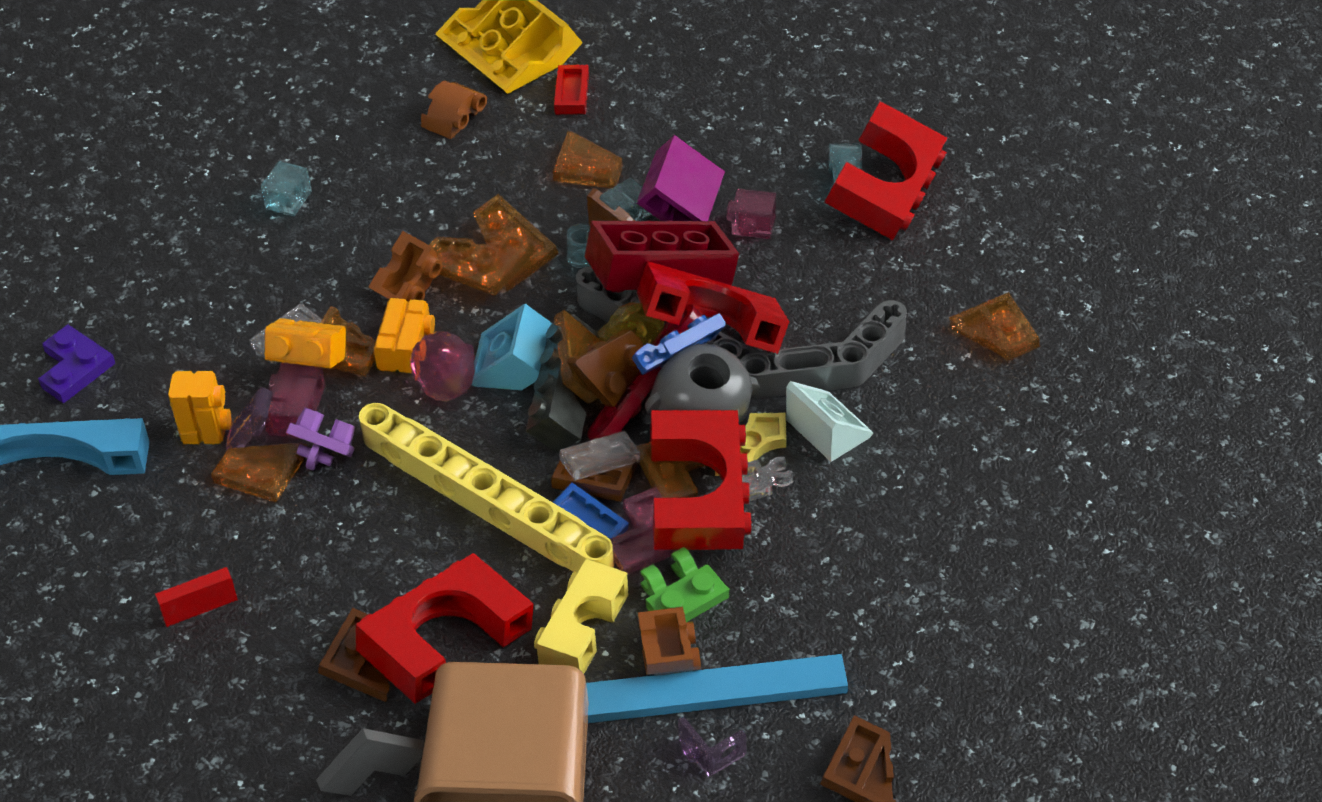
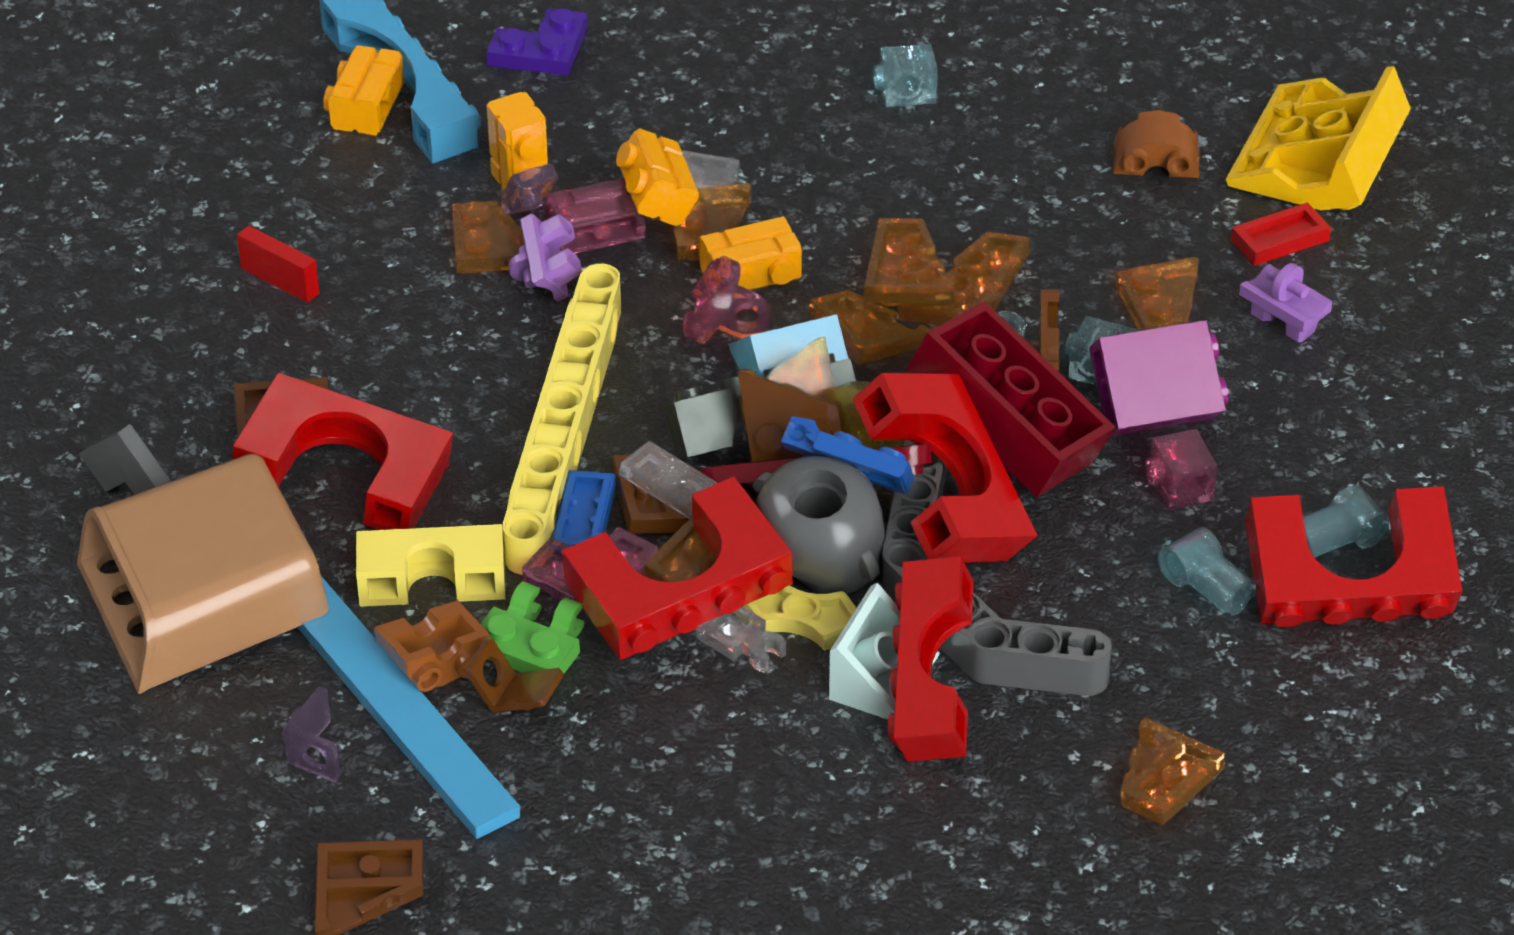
camera: 60 degrees right, 5 degrees down
(43, 477) = (364, 90): none -> light orange brick
(409, 271) = (842, 224): dark orange cylinder -> none
(492, 309) = (867, 328): none -> clear orange wing
(643, 106) = (1285, 296): none -> medium lavender hips
(733, 611) = (511, 689): none -> reddish brown bracket
(836, 241) = (1201, 563): none -> clear light blue piece
(895, 410) = (932, 605): none -> red arch

